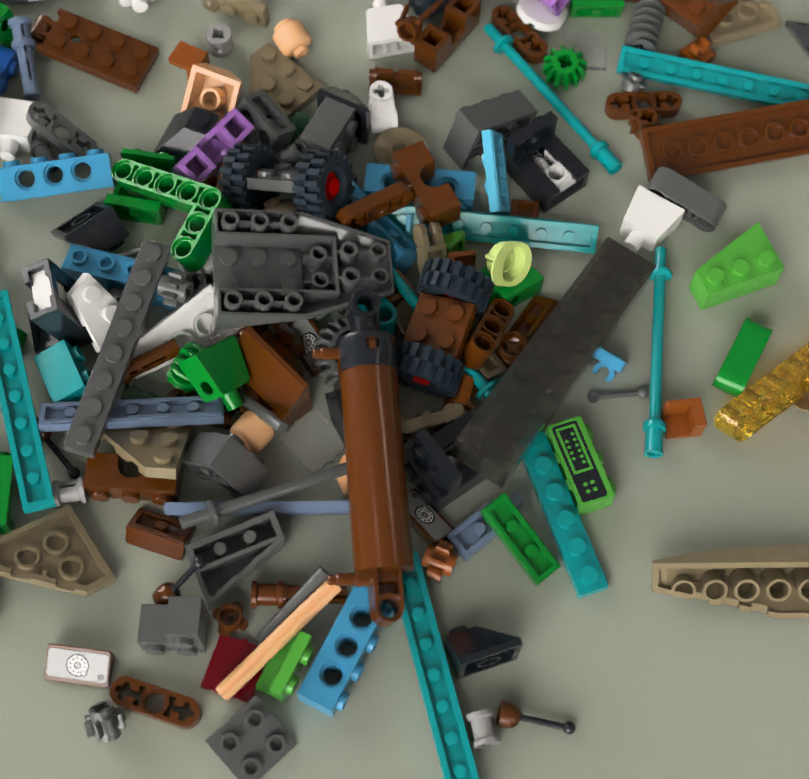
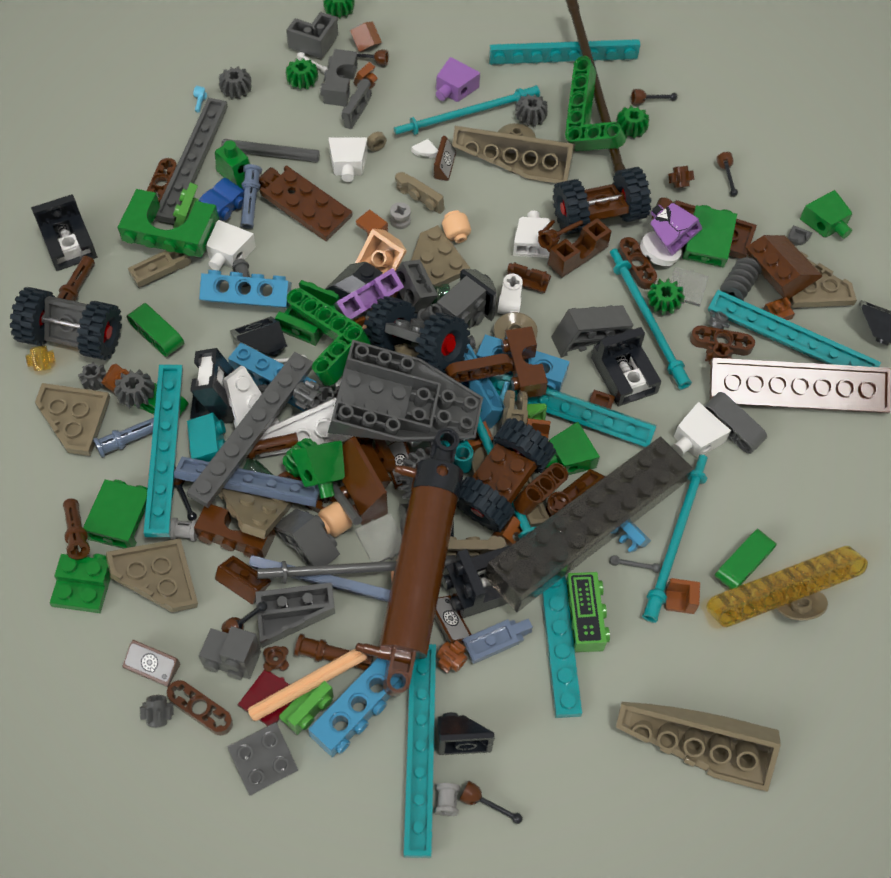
camera: 15 degrees right, 5 degrees down
(40, 126) = (260, 249): dark grey beam -> none
(294, 602) = (331, 656): dark grey bar -> none
(496, 174) = (585, 365): medium azure plate -> none
(508, 262) = (573, 437): yellowish green piece -> none
(519, 538) = (520, 656): green tile -> none
(737, 270) = (761, 488): bright green wedge -> none

